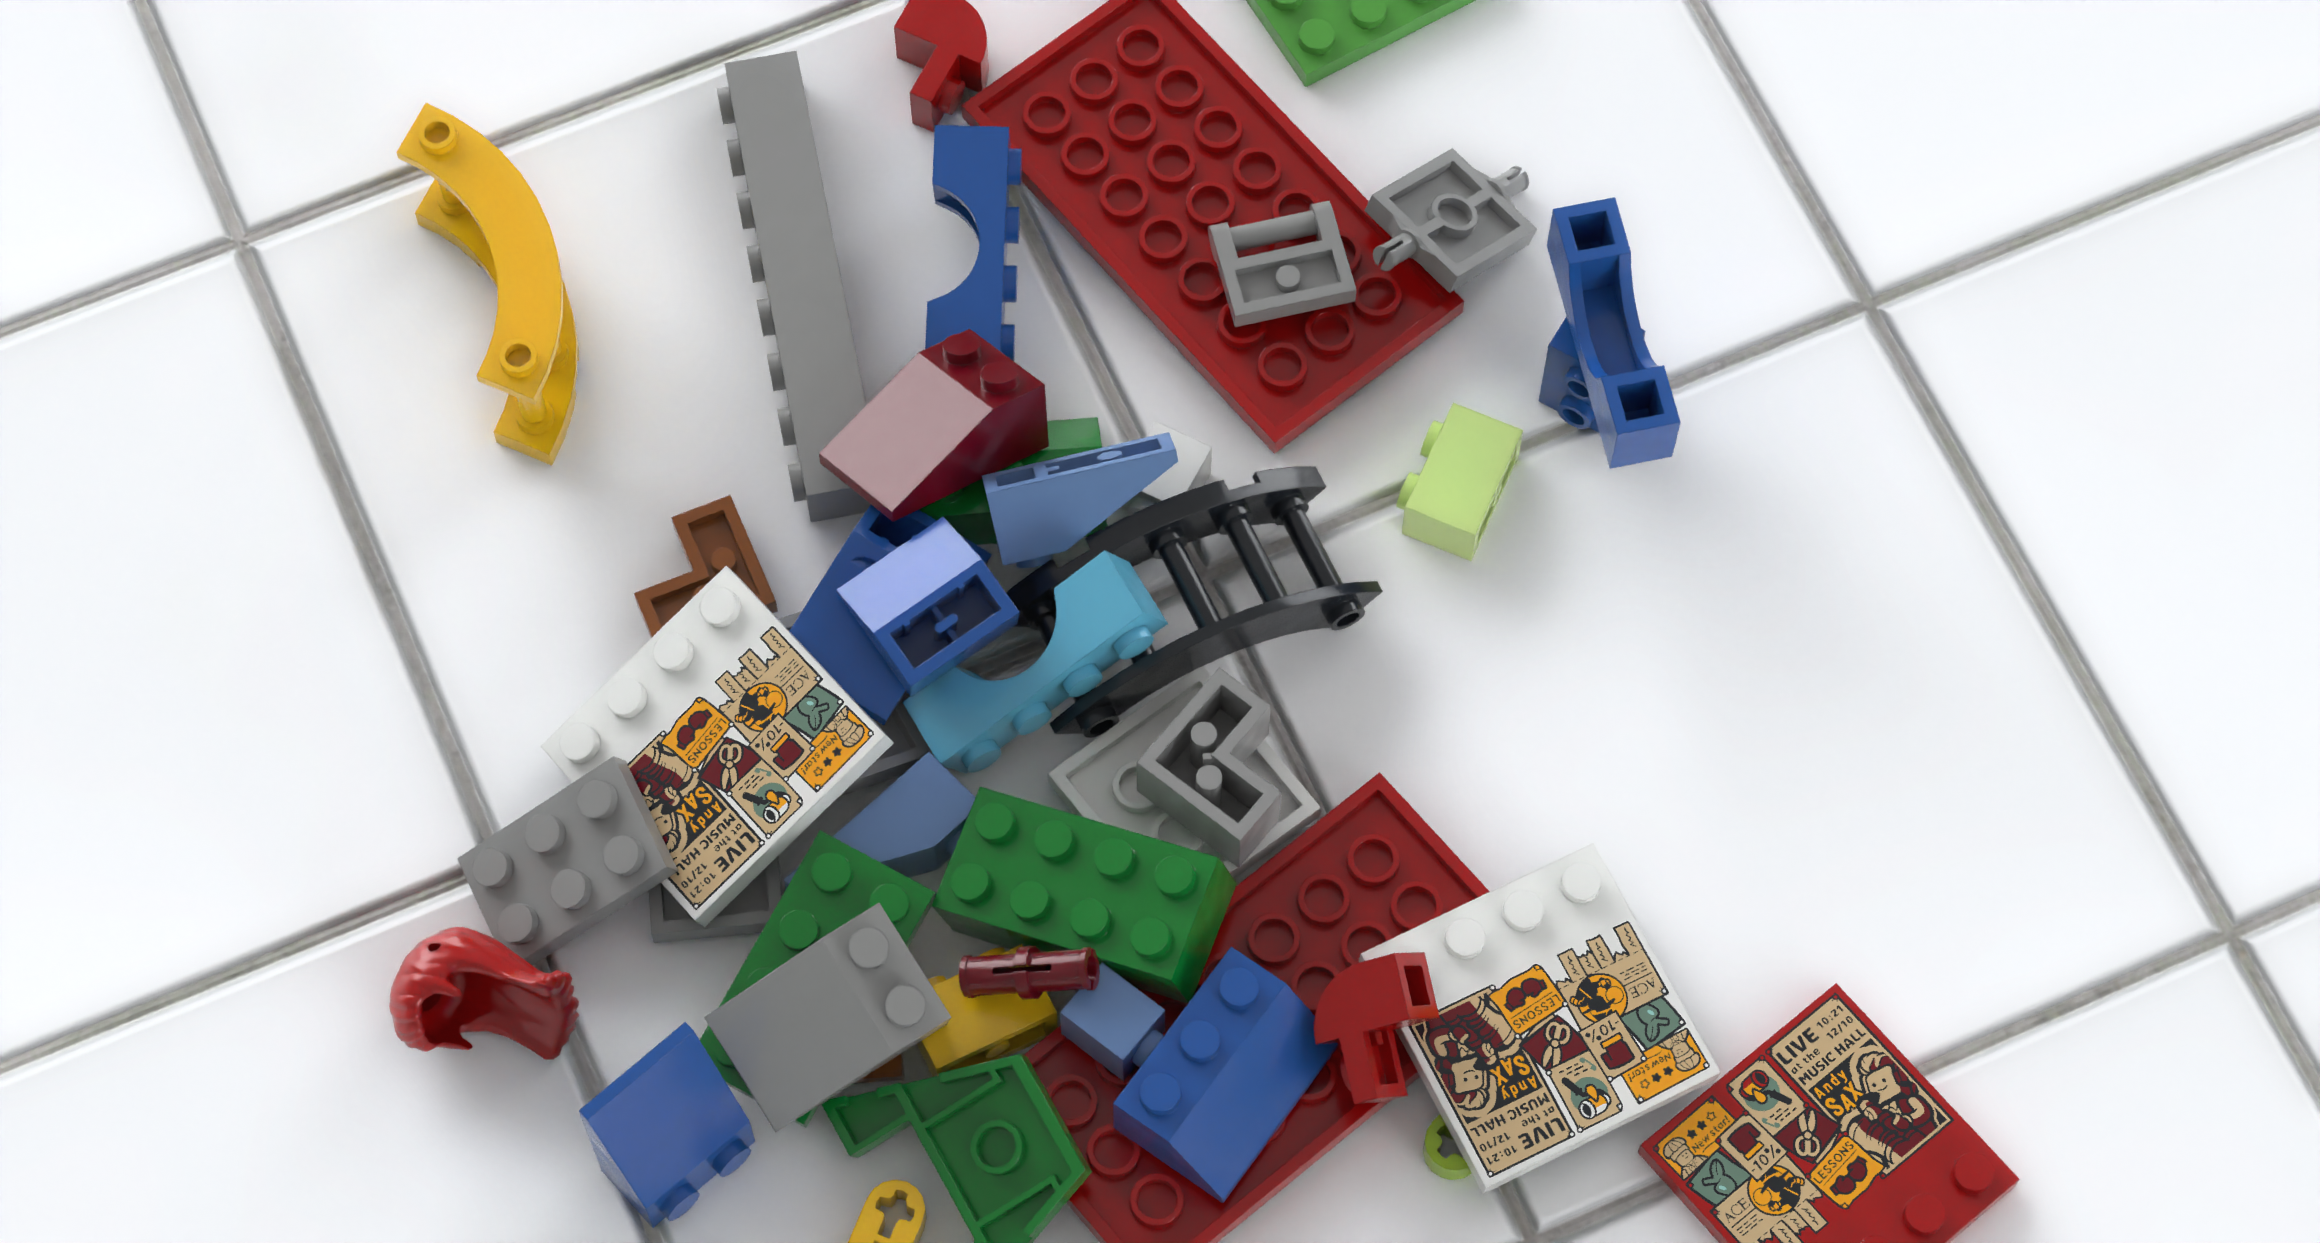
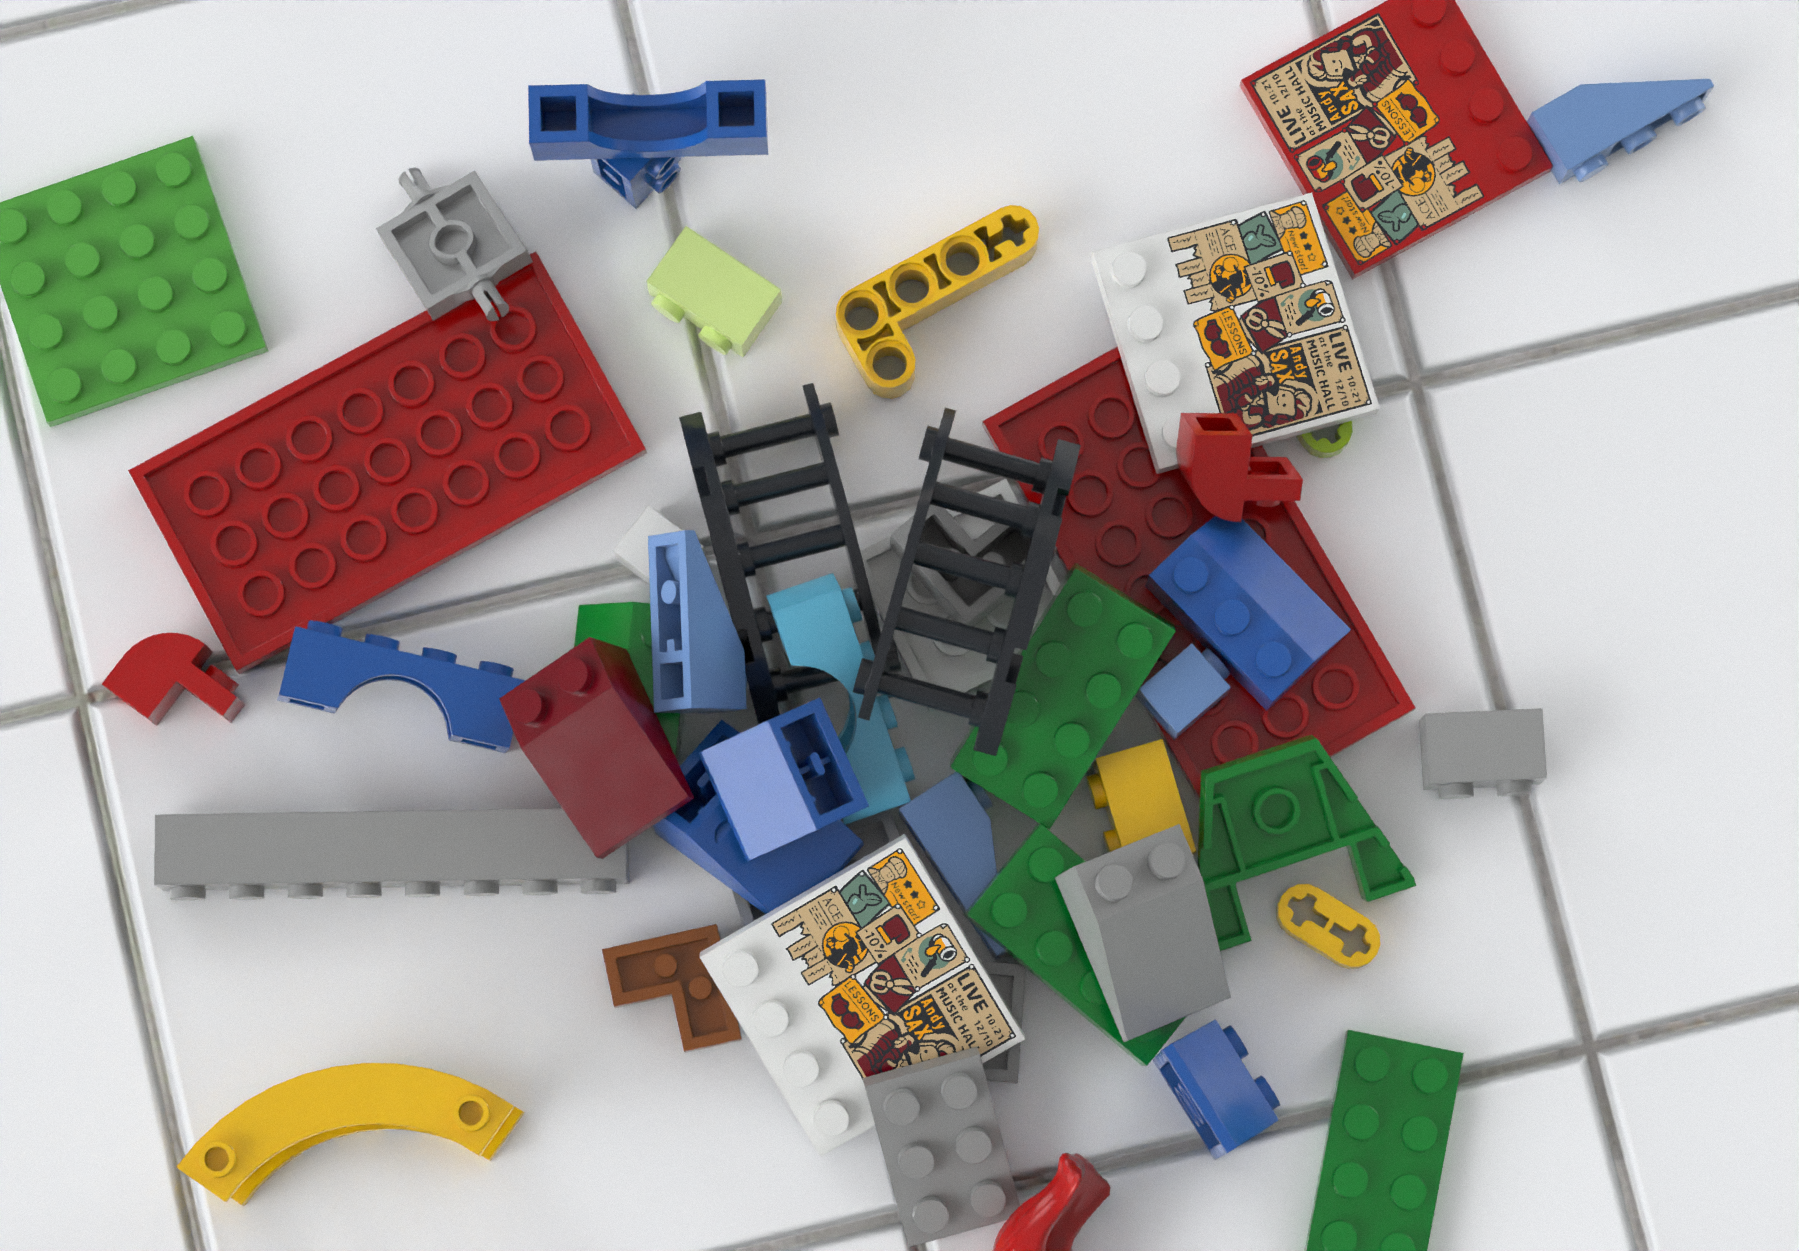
camera: 80 degrees left, 15 degrees up
(1029, 972) = (1137, 753): dark red pin -> none
(1184, 793) = (1020, 582): none -> black fence
(1287, 278) = (491, 405): light grey plate -> none
(1514, 706) = (943, 290): none -> yellow beam

